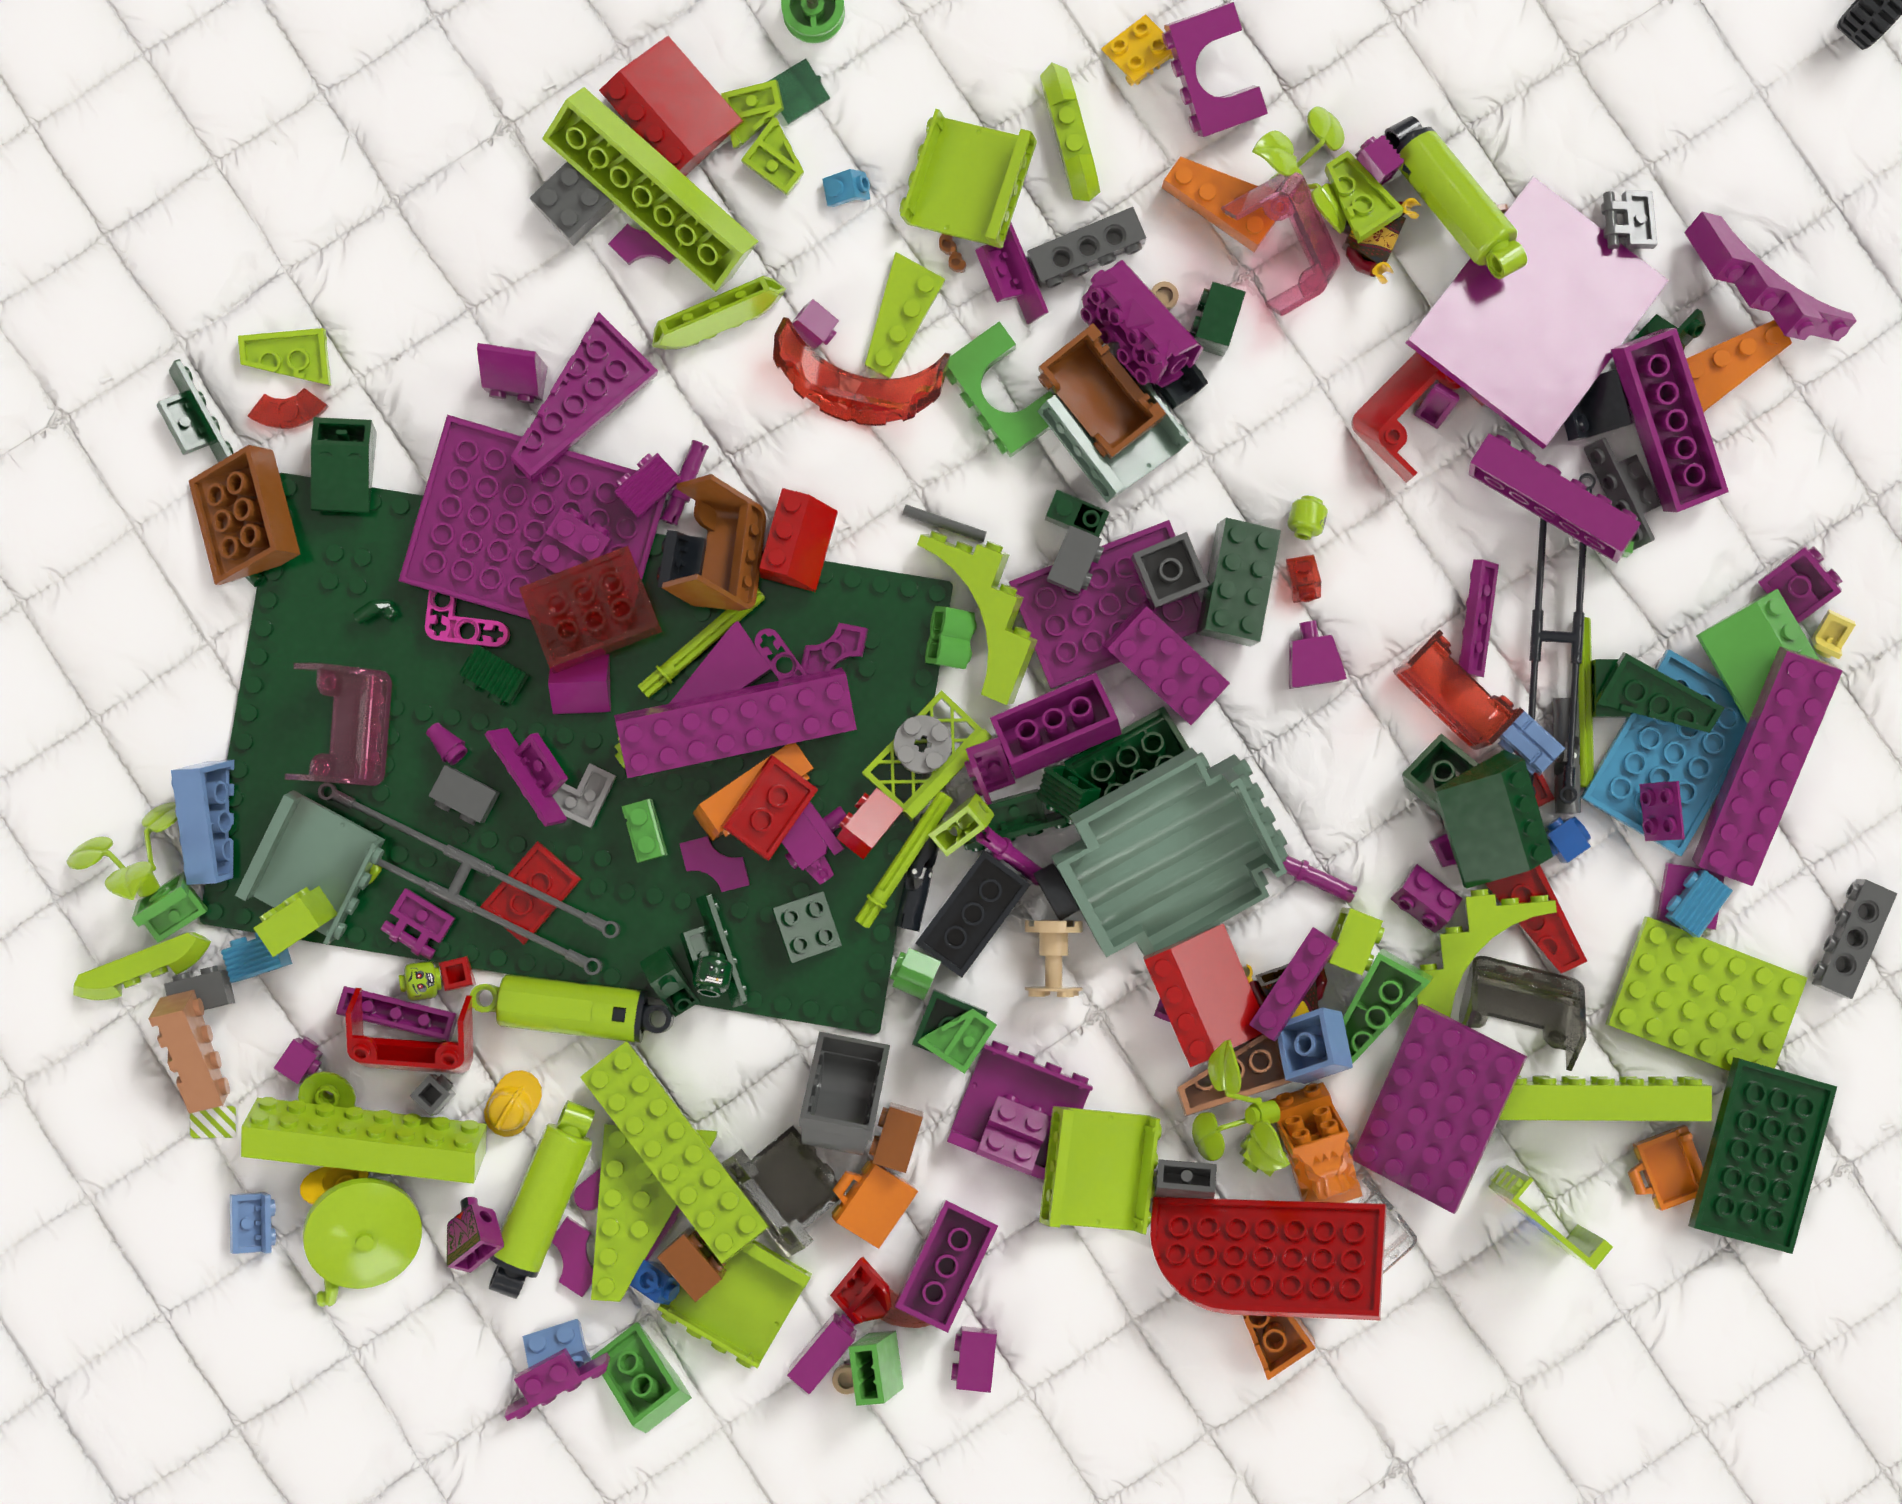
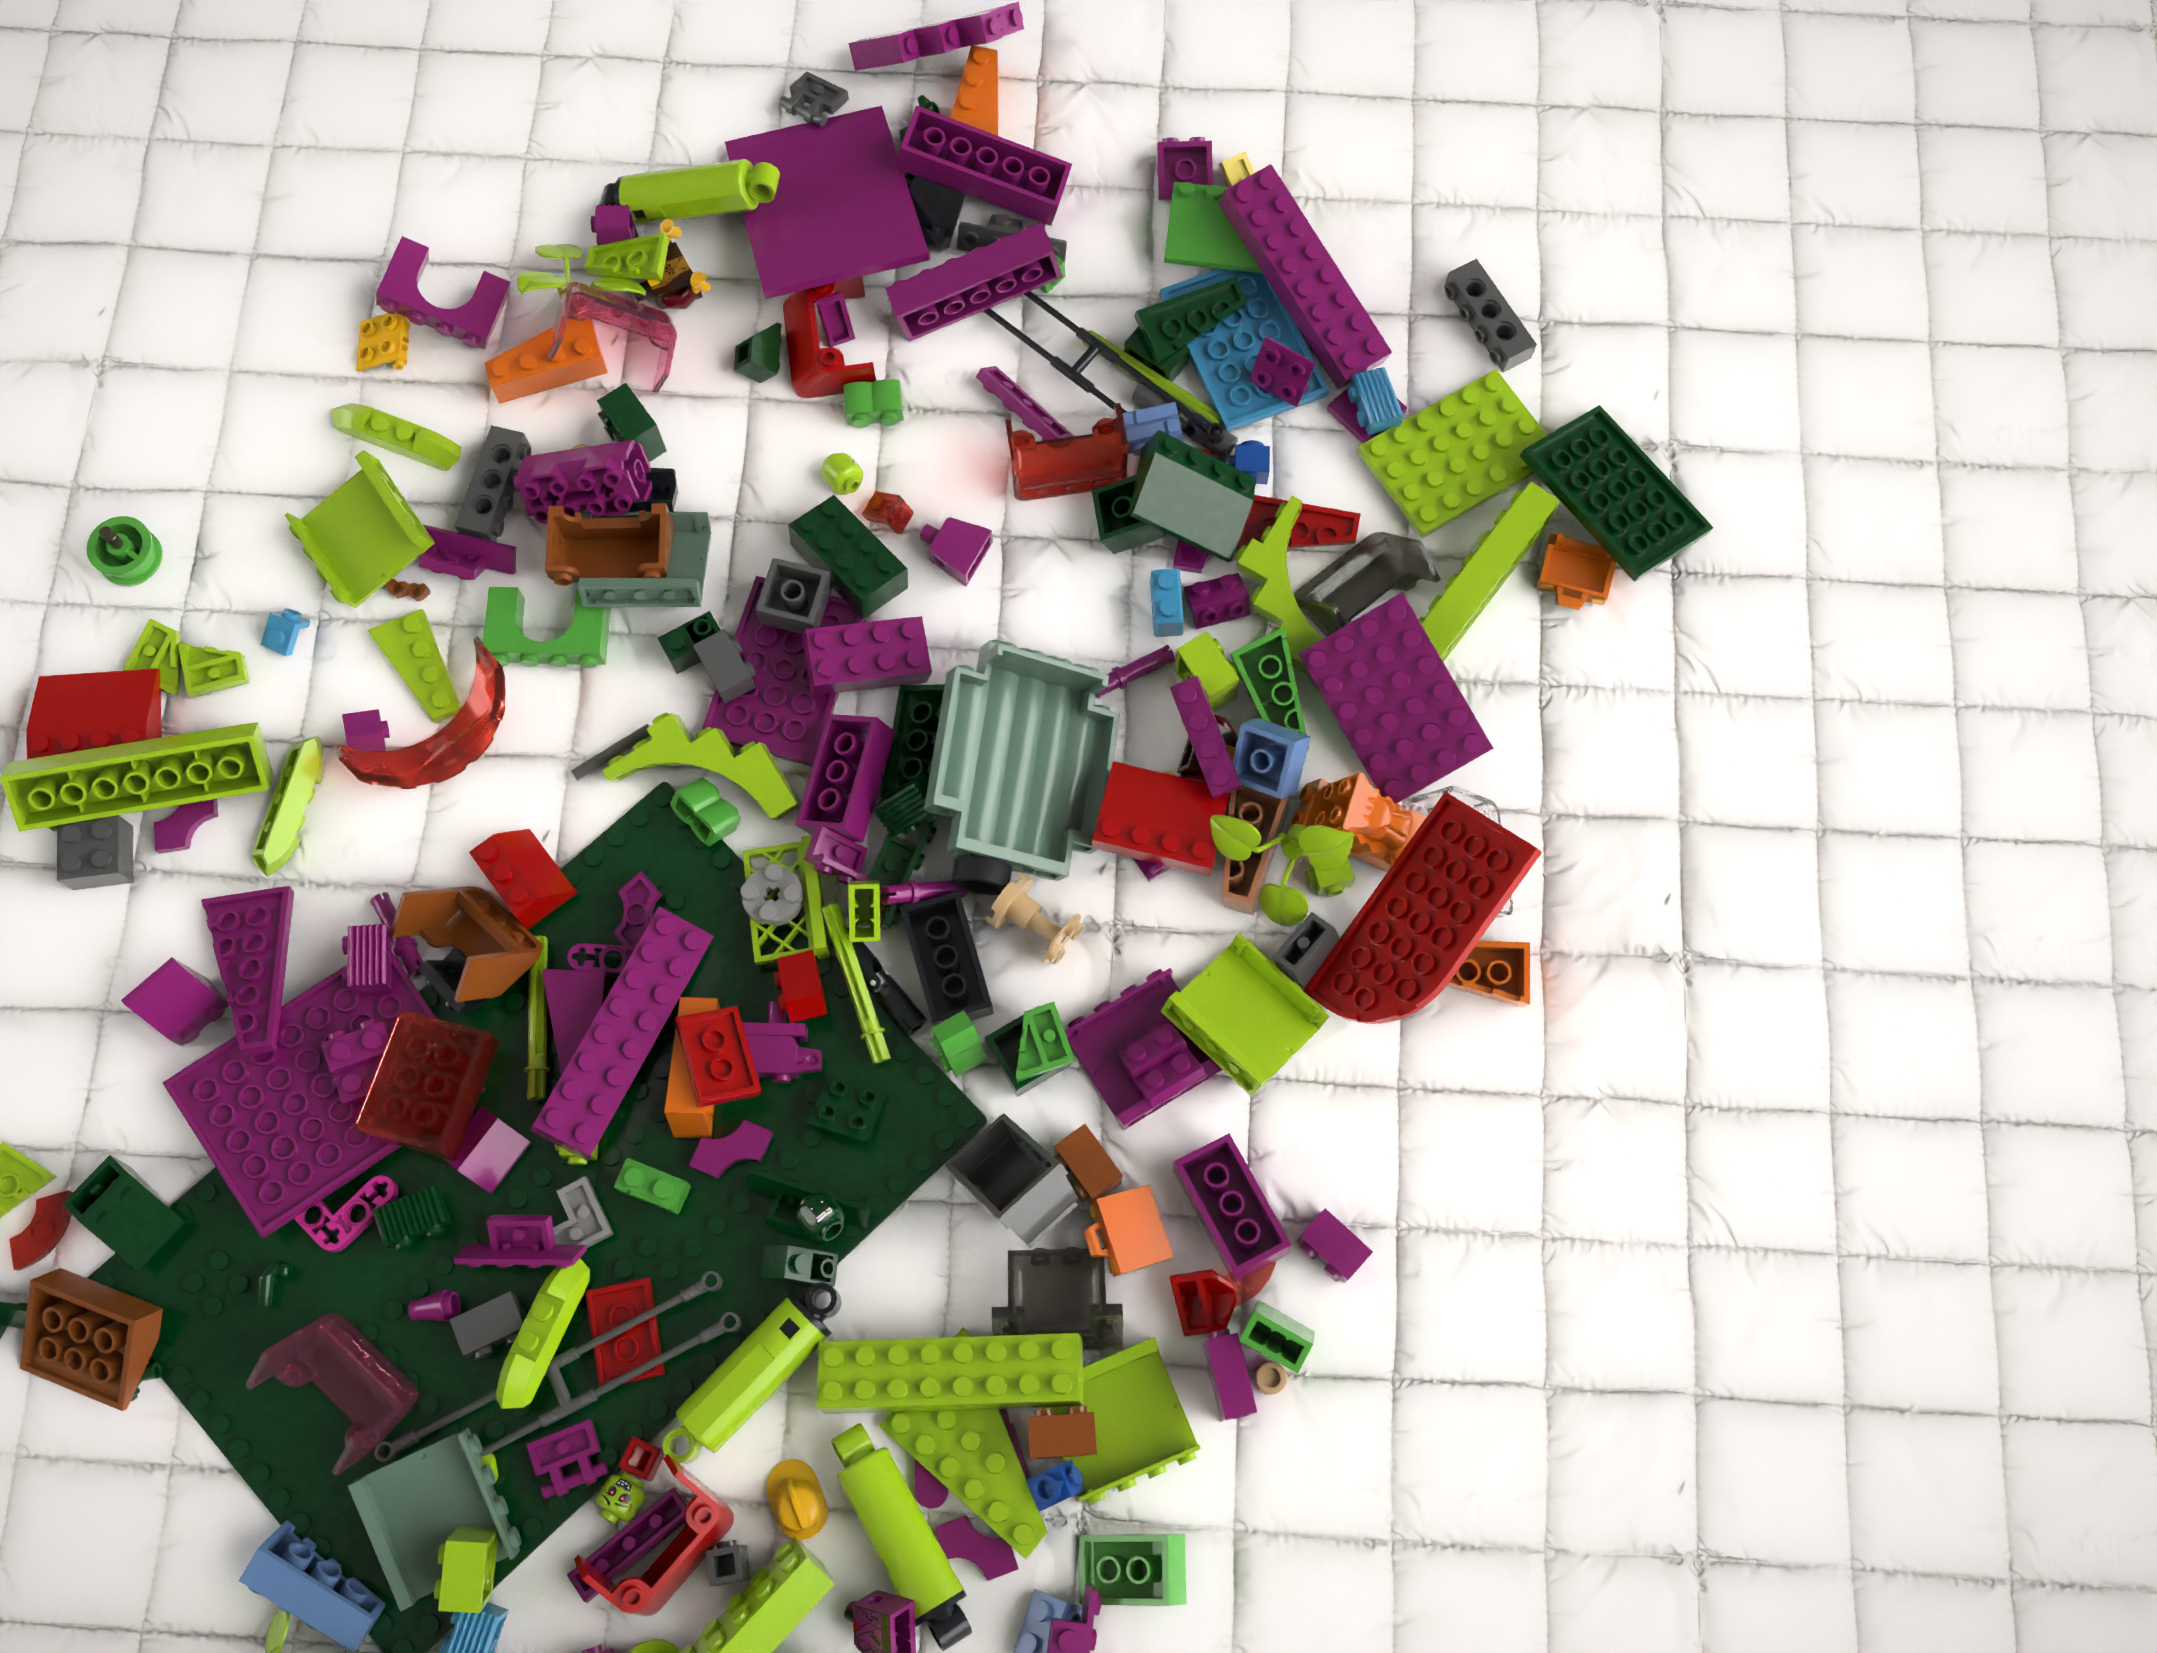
camera: 50 degrees left, 15 degrees down
(481, 839) = (541, 1335): none -> lime brick
(800, 91) = (181, 612): clear green piece -> none
(1361, 366) = (759, 354): none -> dark green slope
(1388, 493) = (873, 402): none -> bright green brick
(1392, 862) = (1166, 602): none -> dark azure brick
(1579, 1243) = (1551, 684): lime panel -> none

